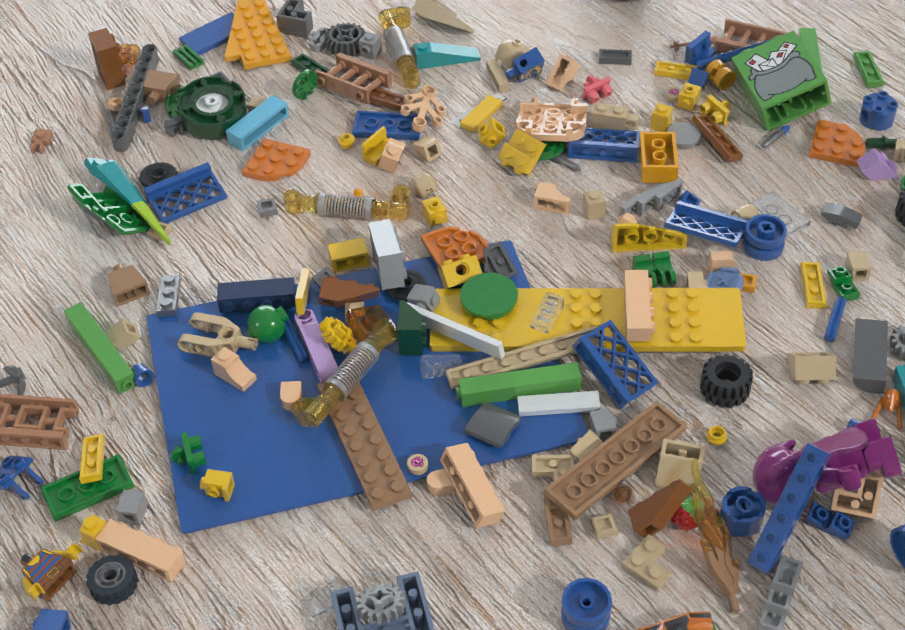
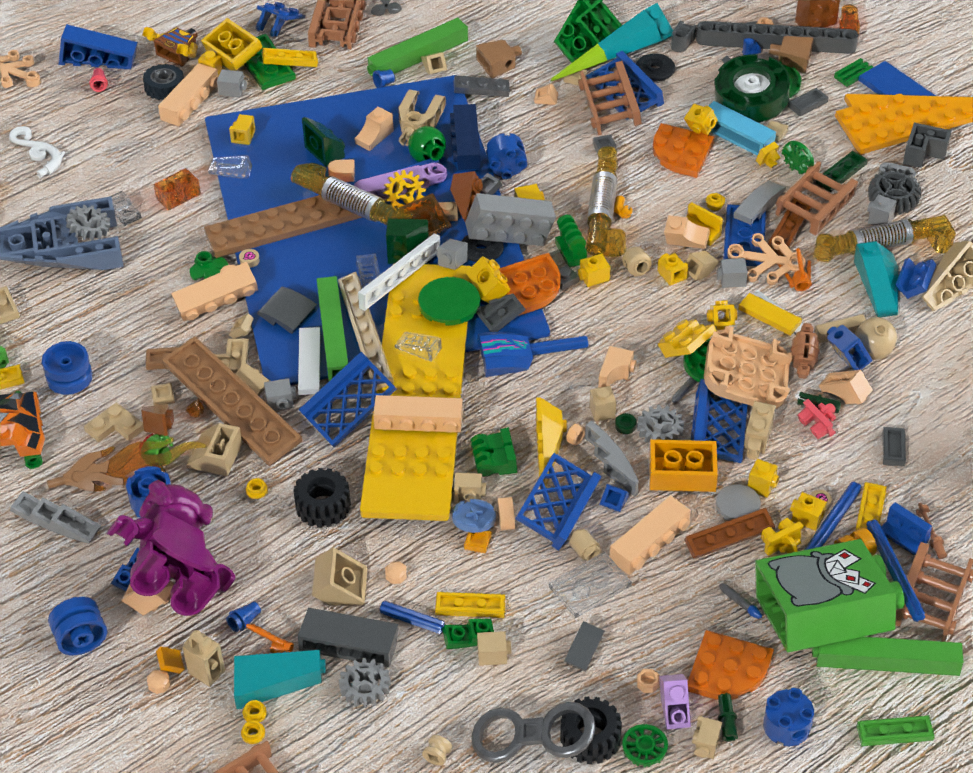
camera: 90 degrees right, 0 degrees up
(73, 502) = (232, 44): none -> yellow brick
(121, 154) = (683, 36): none -> dark grey piece
(186, 251) = (546, 95): none -> light nougat slope
(190, 444) = (281, 109): green hips -> none
(206, 185) = (623, 87): none -> nougat fence
(253, 409) = (322, 142): none -> dark green slope
(254, 135) = (701, 119): none -> yellow brick
(277, 479) = (237, 166): none -> clear slope
(284, 264) = (506, 155): none -> blue brick
(294, 105) = (768, 155): none -> yellow tile
(300, 545) = (177, 189): none -> clear orange brick
(303, 291) = (461, 164): yellow tile -> none
(353, 110) = (758, 202): none -> light grey slope
(407, 223) = (570, 242): none -> green legs
(425, 505) = (206, 265): none -> green plate
(432, 164) = (671, 264): none -> yellow brick
(437, 128) = (732, 273): none -> light grey brick
(444, 93) = (801, 280): none -> orange plant
(445, 31) = (915, 278): none -> blue bracket
(512, 464) = (241, 326): none -> tan plate
(523, 236) = (559, 345): none -> blue axle
(526, 89) = (805, 350): none -> nougat piece
(538, 268) = (504, 352): none -> blue slope
(578, 88) = (816, 400): none -> dark green axle
(610, 195) = (625, 423): none -> dark green tile
(613, 172) = (660, 424): none -> light grey gear
(676, 82) = (834, 516): none -> blue axle
(698, 77) = (849, 524): blue tile -> none
(726, 178) = (650, 535): none -> light nougat brick
(764, 237) = (540, 557): blue wheel -> none
(789, 508) = (127, 499): blue brick -> none
(791, 332) = (396, 572): none -> light nougat tile
(862, 182) = (648, 681): none -> light nougat tile

